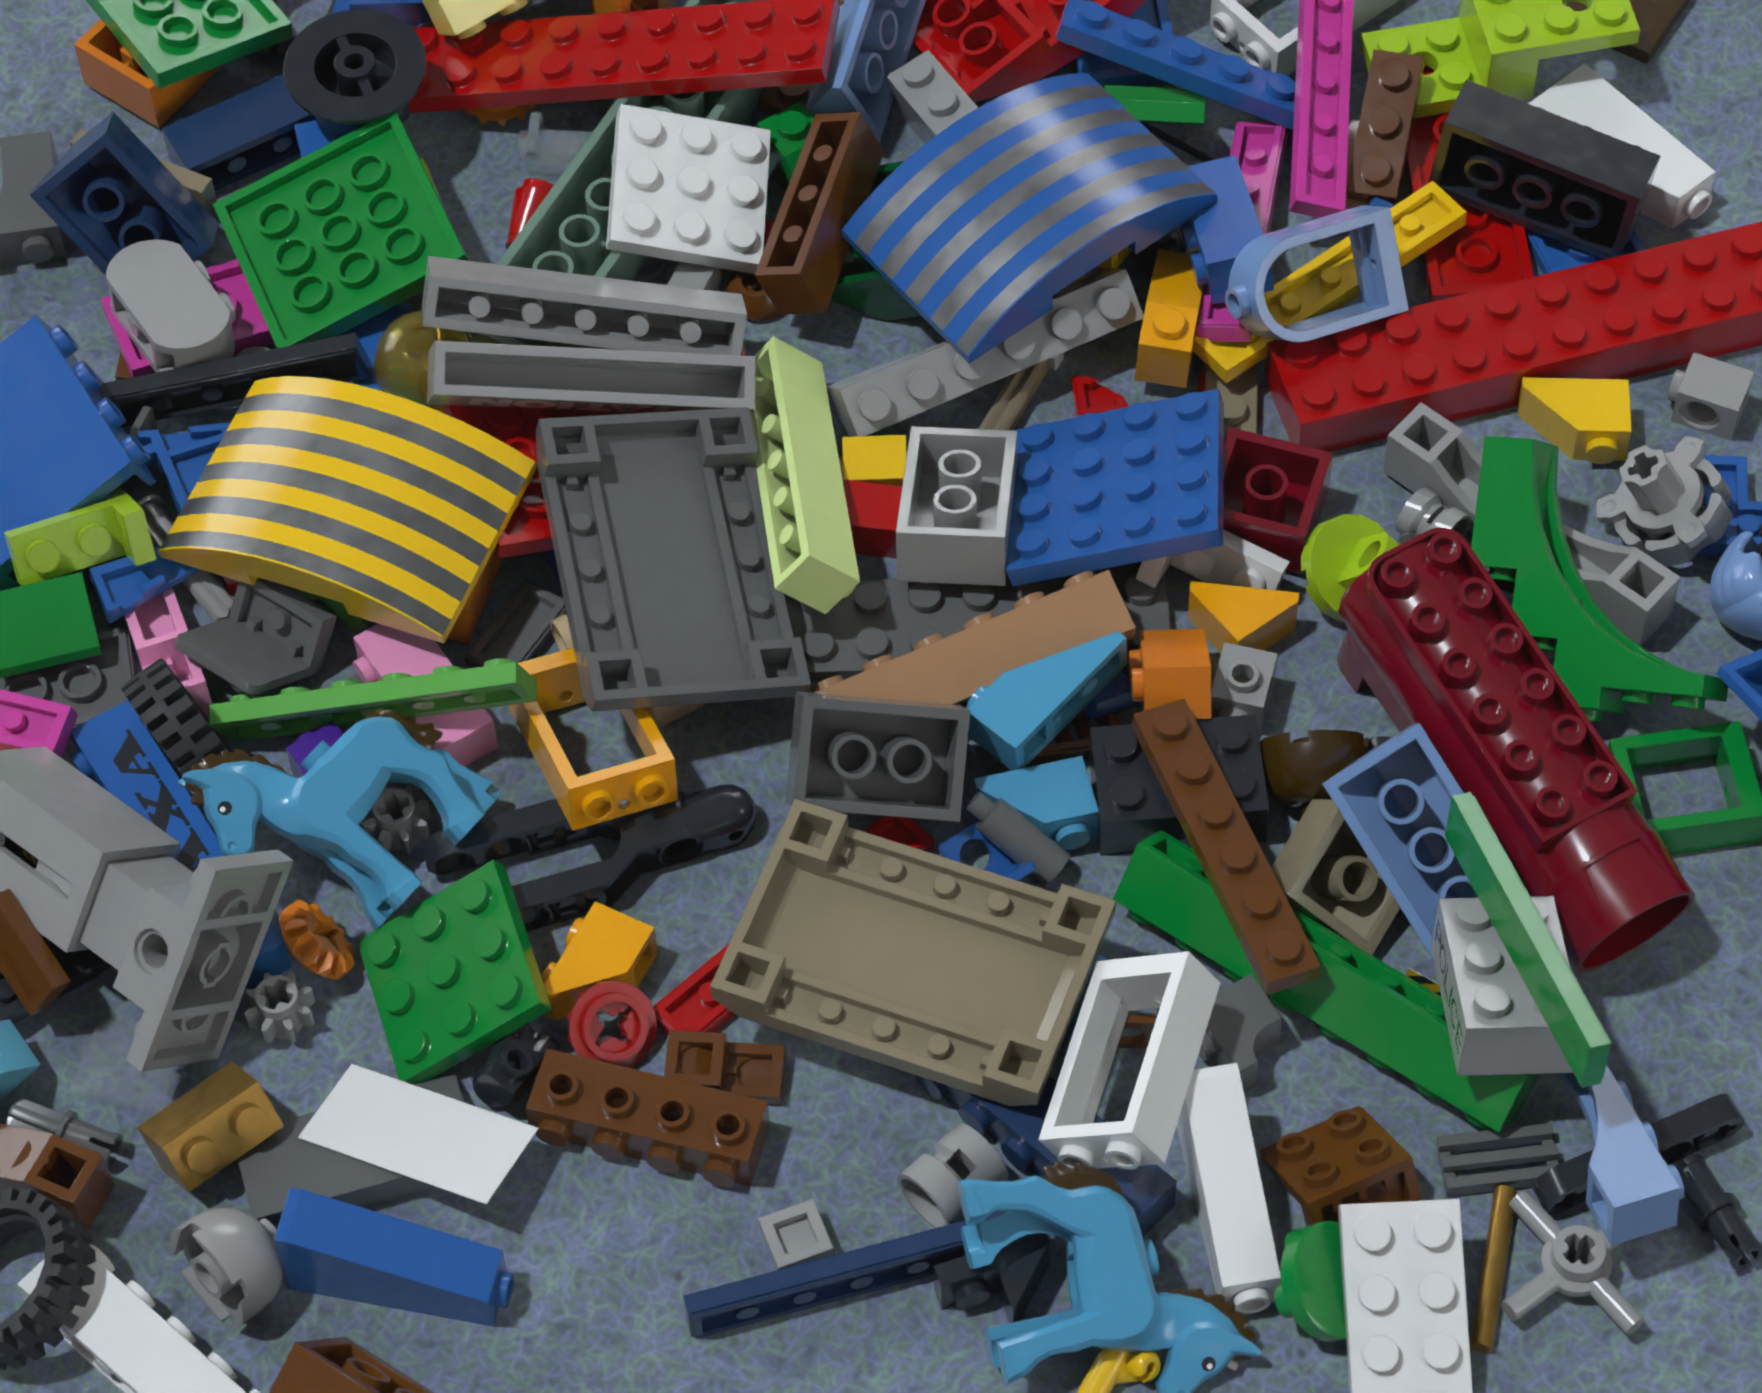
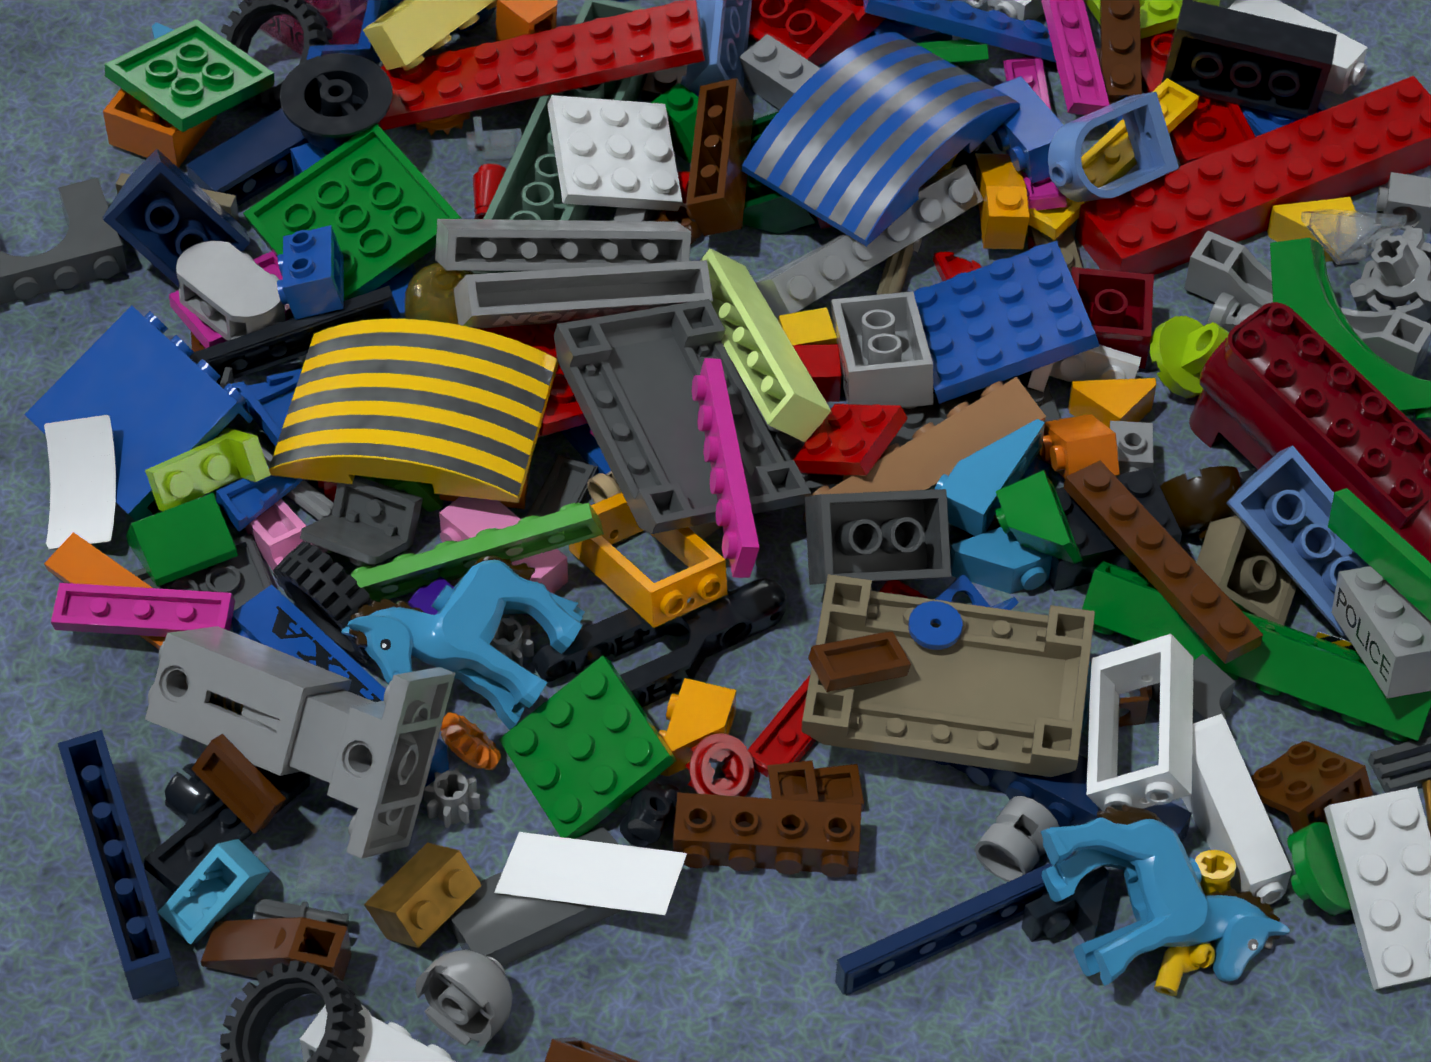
camera: 15 degrees left, 5 degrees down
(266, 302) = (311, 272): none -> blue brick
(388, 1261) = (595, 973): blue slope -> none
(697, 654) = (727, 473): none -> dark pink plate
(795, 1235) = (906, 903): light grey plate -> none
(801, 919) = (859, 661): none -> reddish brown tile
(882, 619) = (850, 439): none -> red plate
(910, 902) = (931, 637): none -> blue wheel
(1018, 837) = (993, 582): dark grey cylinder -> none
(1085, 761) = (1037, 517): none -> green slope
(1184, 1262) = (1216, 870): none -> yellow bush
(1599, 433) = (1350, 234): none -> clear slope

